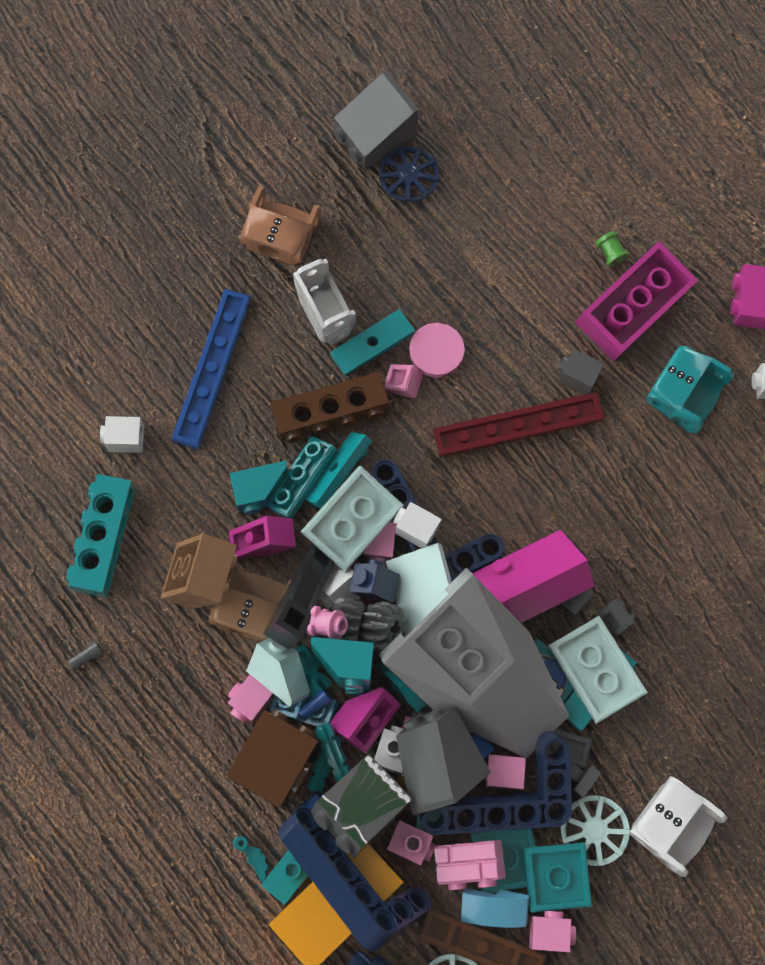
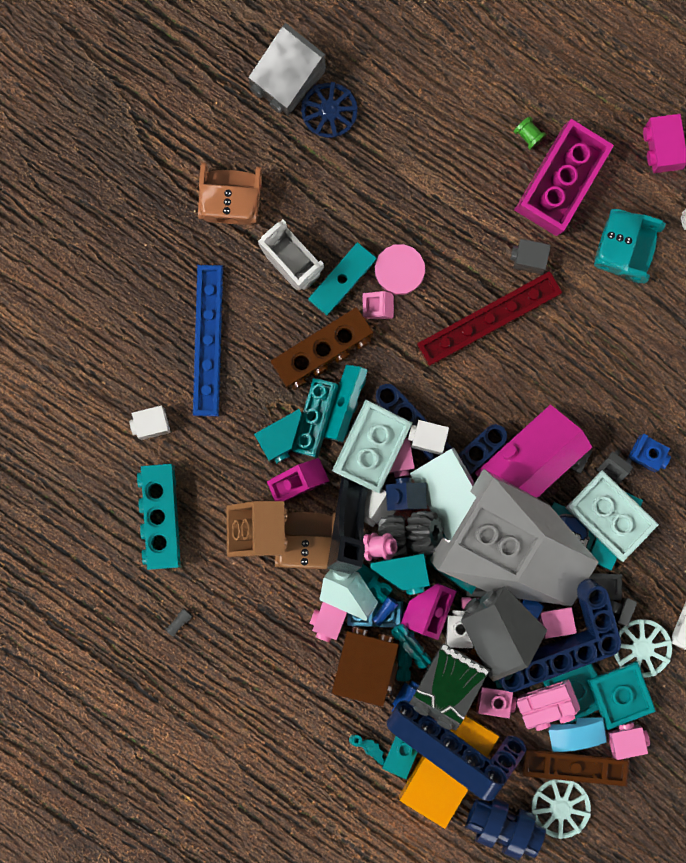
camera: 10 degrees left, 10 degrees up
(646, 614) = (640, 453): none -> blue brick

